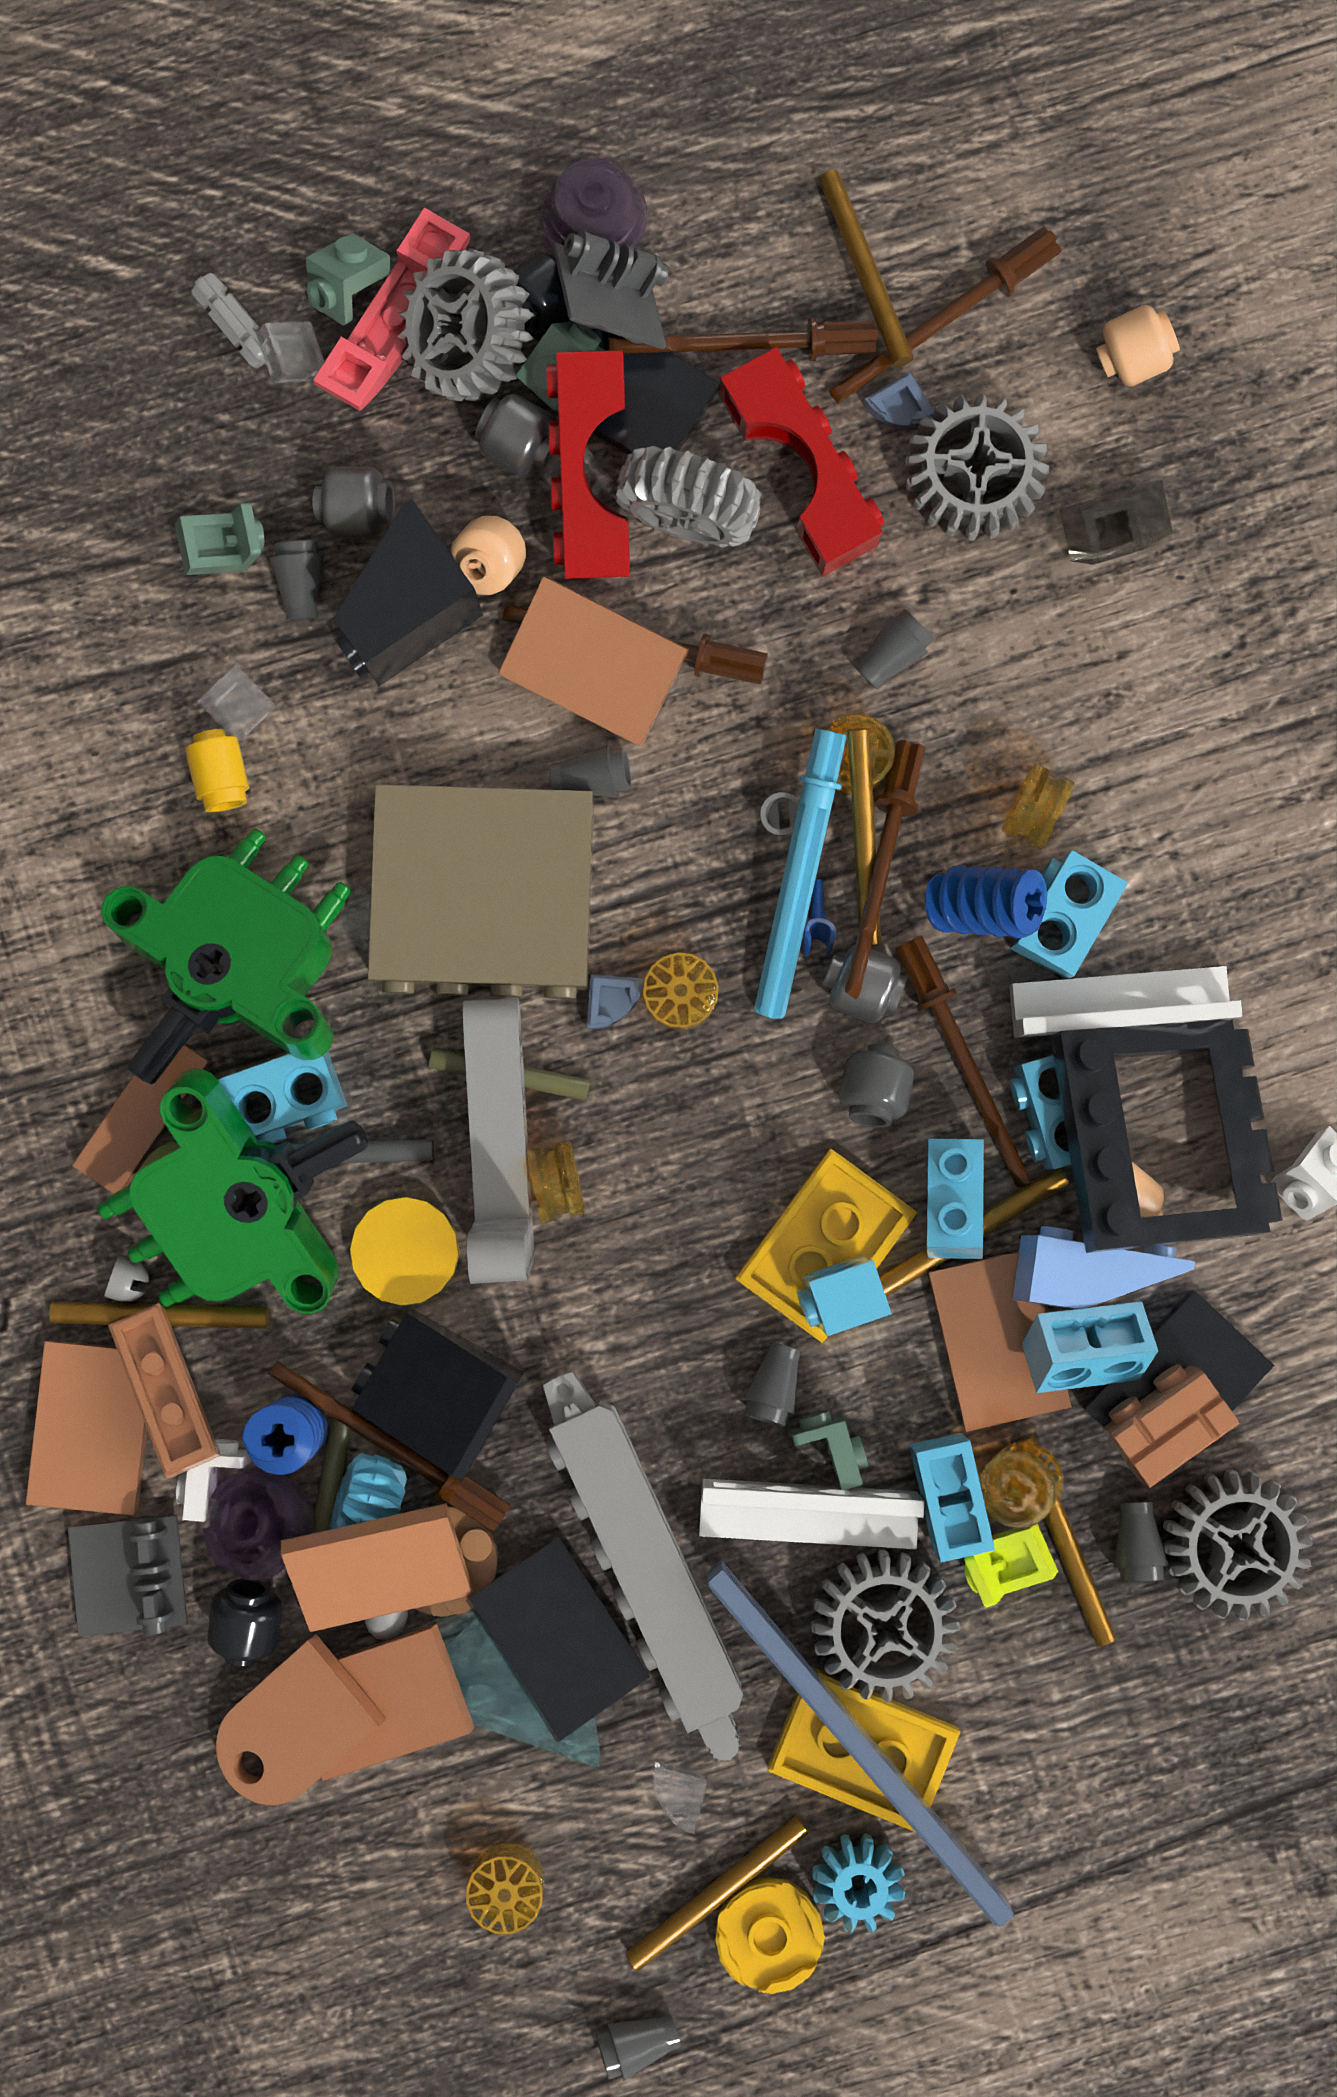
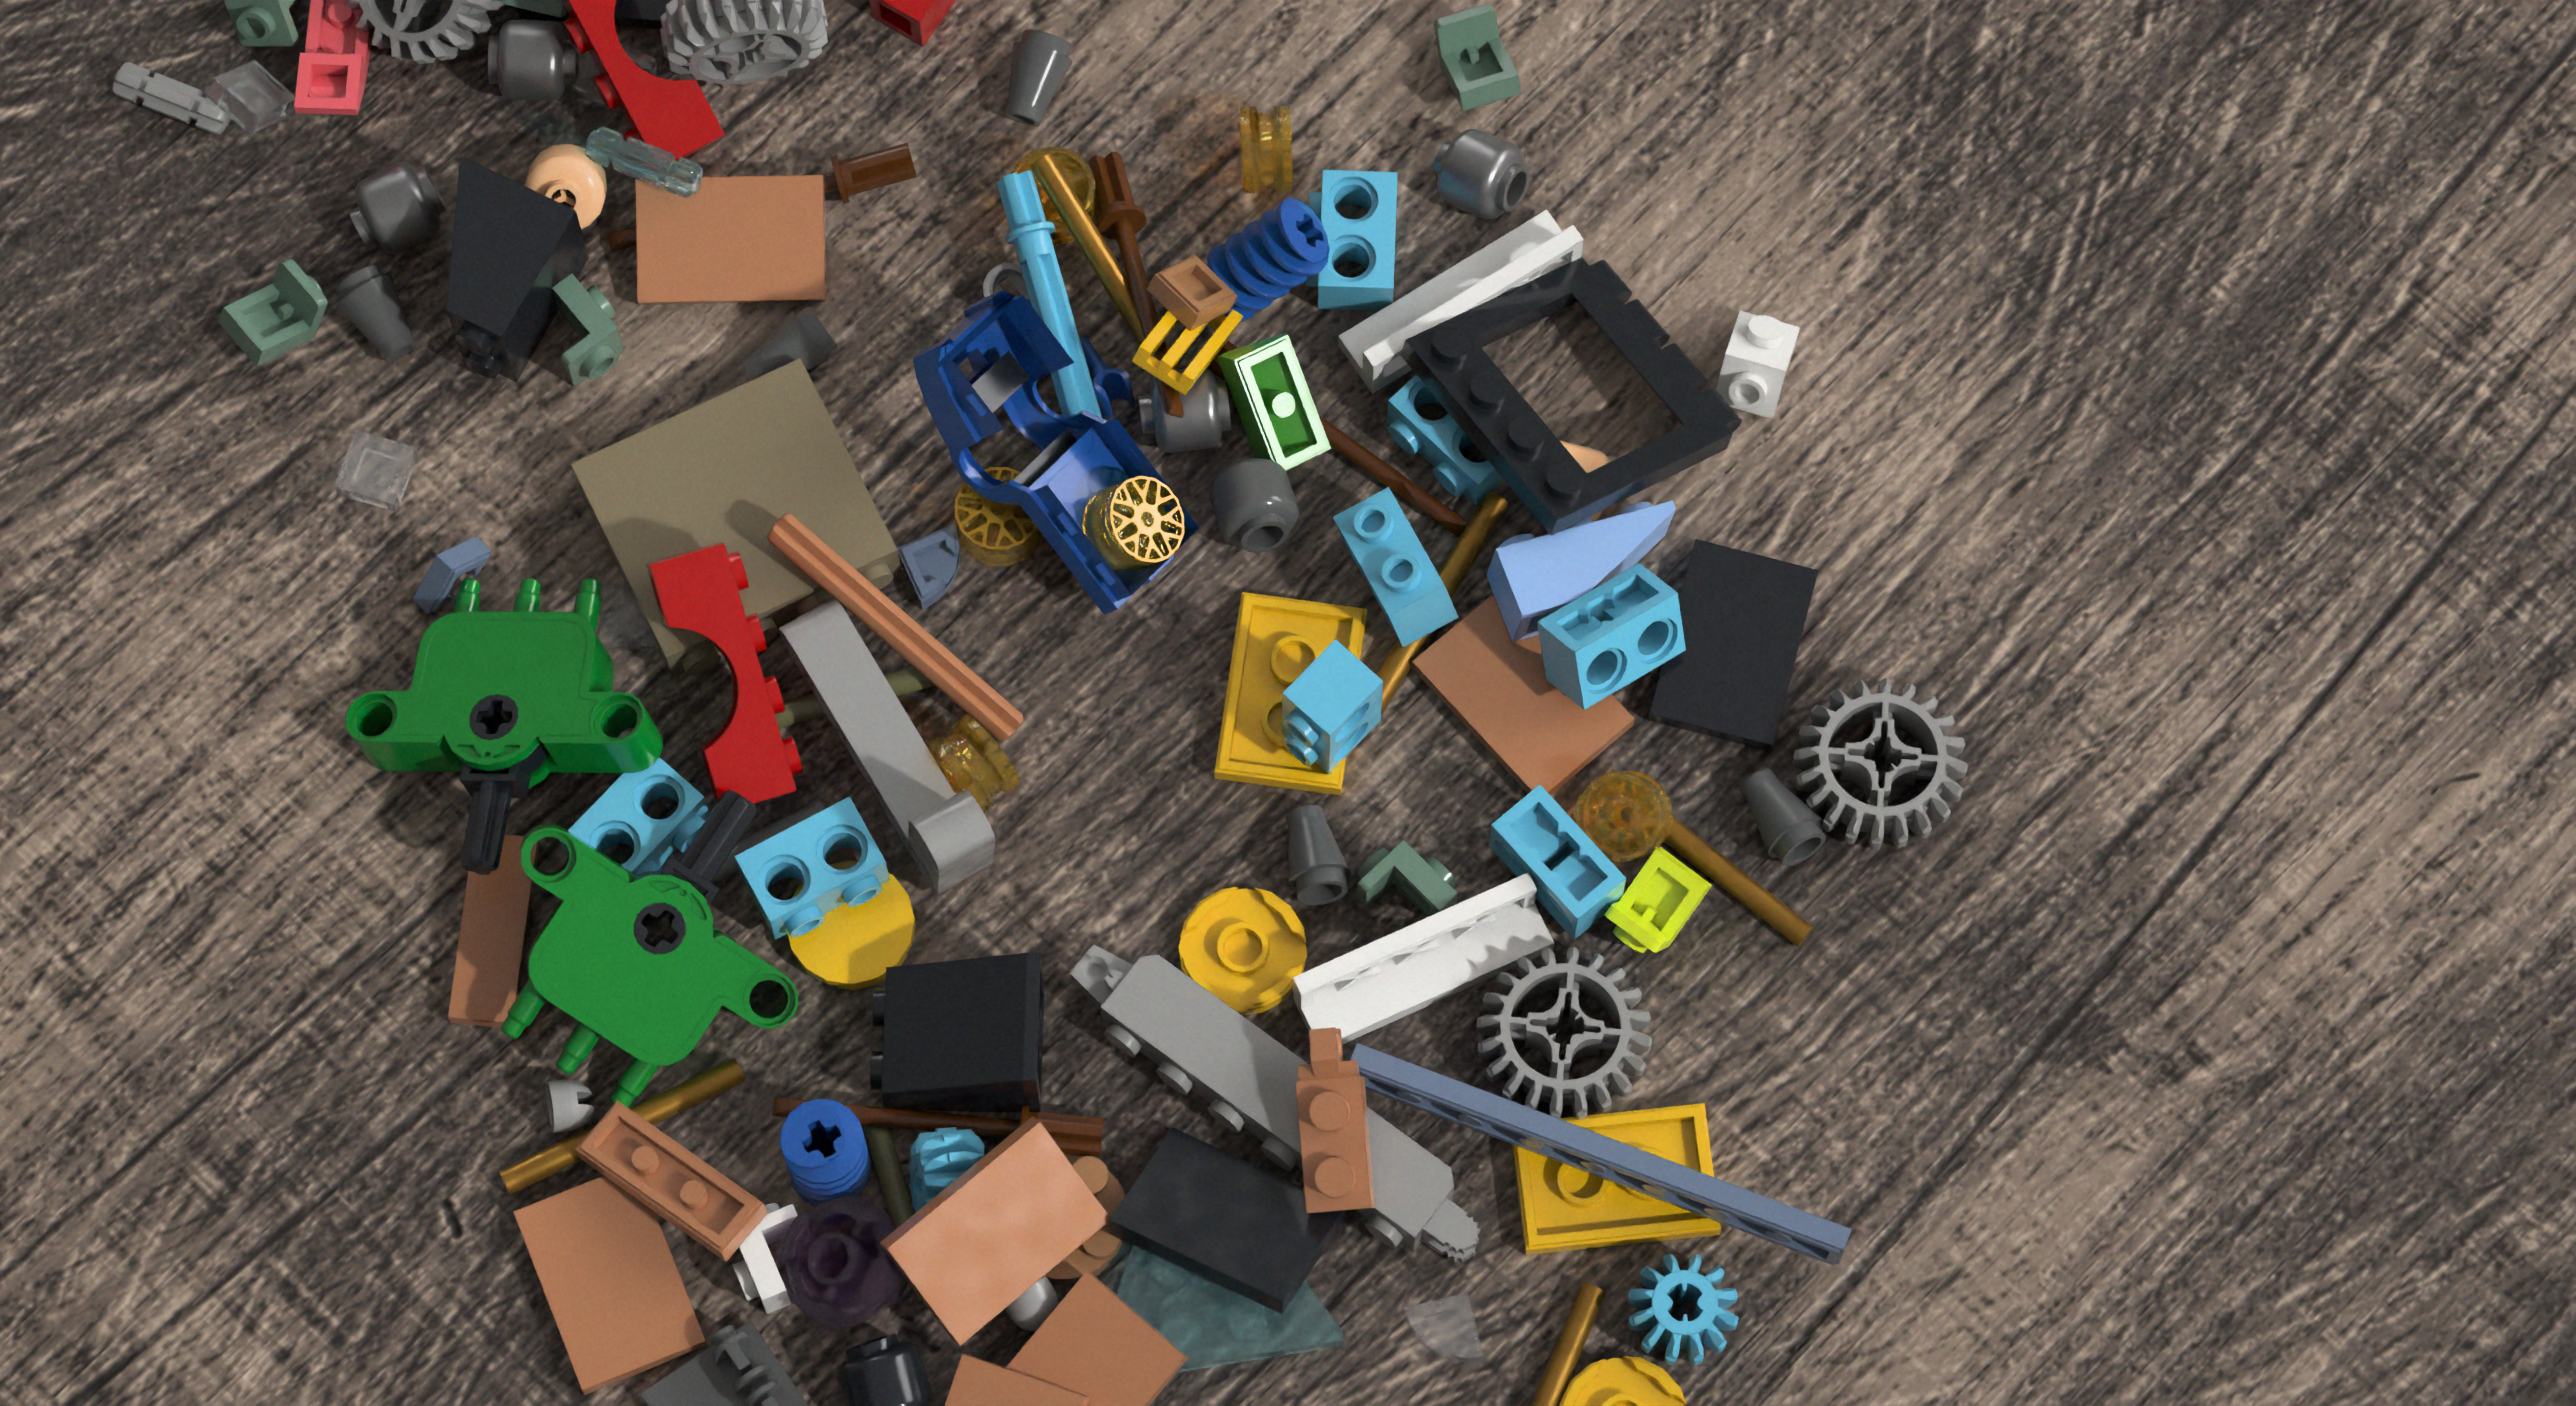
camera: 25 degrees left, 15 degrees down
(217, 770) = (392, 541): yellow brick -> none
(249, 814) = (447, 570): none -> sand blue tile
(391, 1192) = (803, 855): none -> medium azure brick
(409, 956) = (702, 595): none -> red arch
(456, 665) = (590, 317): none -> sand green bracket
(551, 1044) = (895, 627): none -> nougat axle
(554, 568) = (644, 162): none -> clear light blue axle
(669, 1627) = (1333, 1128): none -> nougat hinge
(683, 1426) = (1244, 948): none -> yellow tile
(755, 1016) = (1008, 354): none -> blue piece
(772, 1058) = (1140, 505): none -> clear yellow wheel
(917, 901) = (1192, 292): none -> medium nougat tile
(920, 920) = (1163, 369): none -> yellow tile
(934, 1017) = (1274, 401): none -> bright green slope
(1169, 1423) = (1738, 673): nougat brick -> none
(1192, 912) = (1481, 174): none -> flat silver head
(1238, 816) = (1475, 58): none -> sand green bracket

